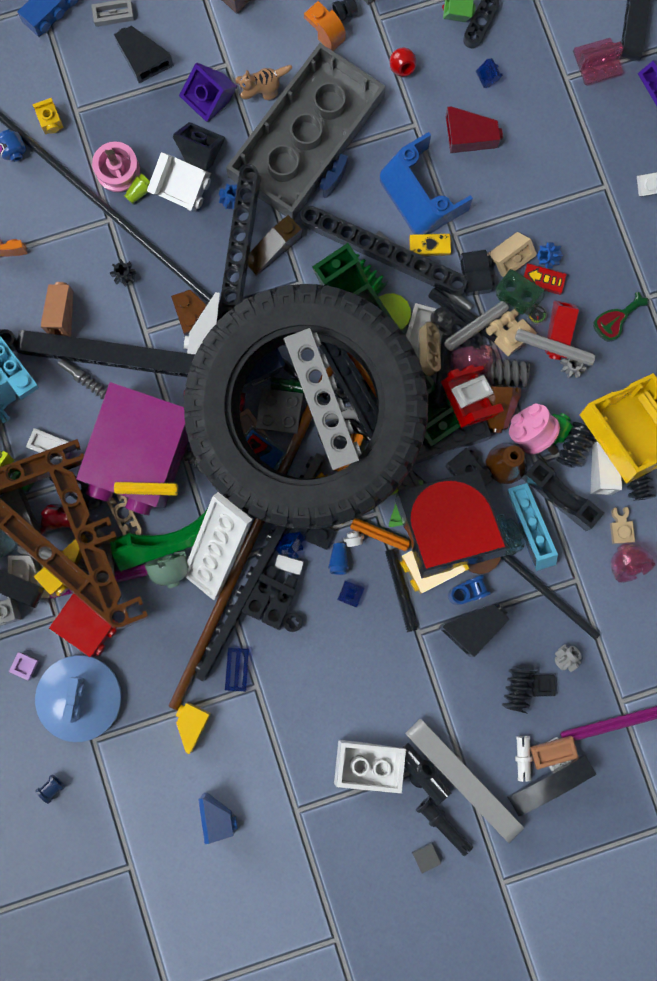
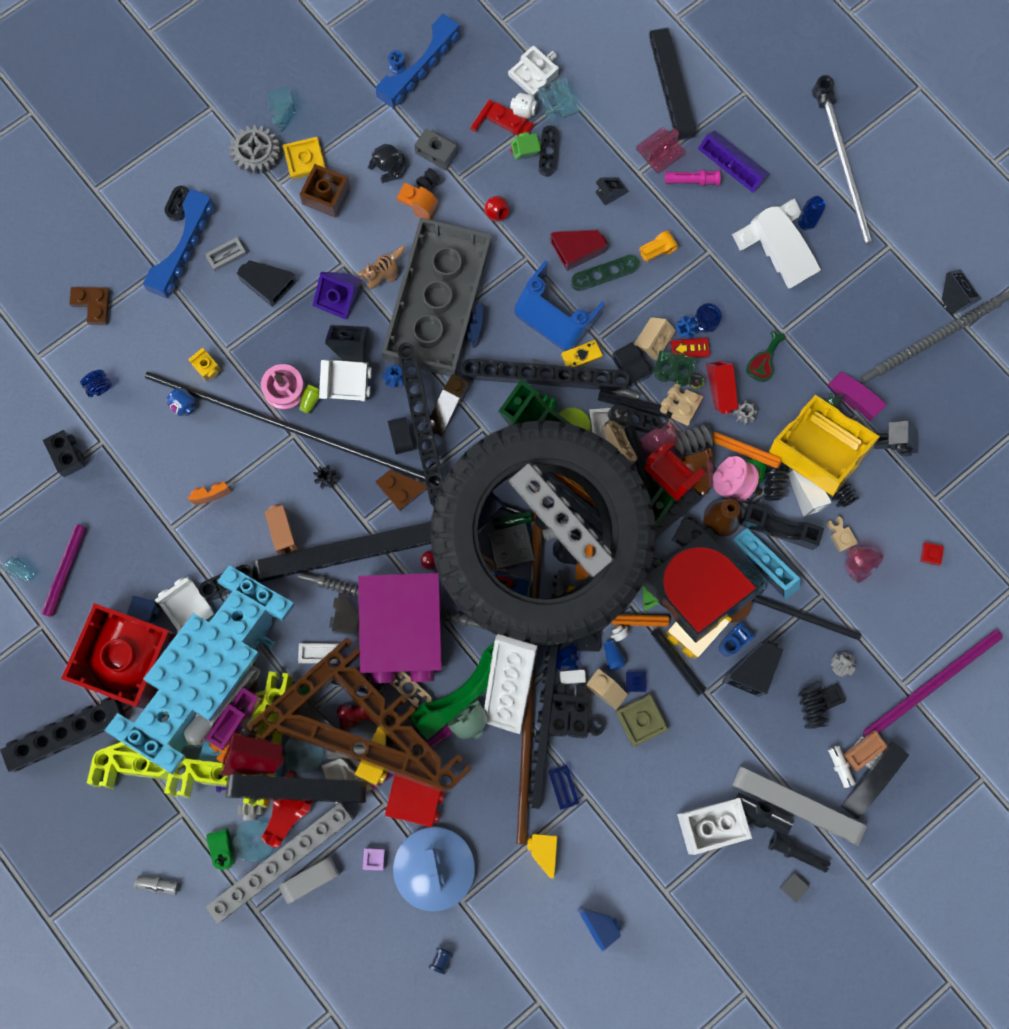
camera: 25 degrees left, 5 degrees down
(85, 419) = (345, 619): none -> clear smoke slope
(146, 488) = (426, 657): yellow axle -> none
(202, 326) = (419, 501): white slope -> none
(214, 259) = (400, 435): none -> black beam
(318, 590) = (606, 689): none -> tan slope
(340, 634) = (641, 720): none -> olive plate
(472, 391) = (673, 466): white tile -> none
(476, 326) = (651, 409): light grey axle -> none
(487, 164) = (603, 269): none -> clear green beam
(488, 73) = (572, 192): clear blue tile -> none
(528, 83) = (610, 189): none -> black slope
(555, 347) = (725, 403): light grey axle -> none
(558, 403) = (746, 450): none -> orange axle
(560, 161) = (663, 244): none -> light orange piece
(575, 253) = (708, 318): none -> clear blue wheel
(628, 105) = (702, 177): none -> dark pink pin

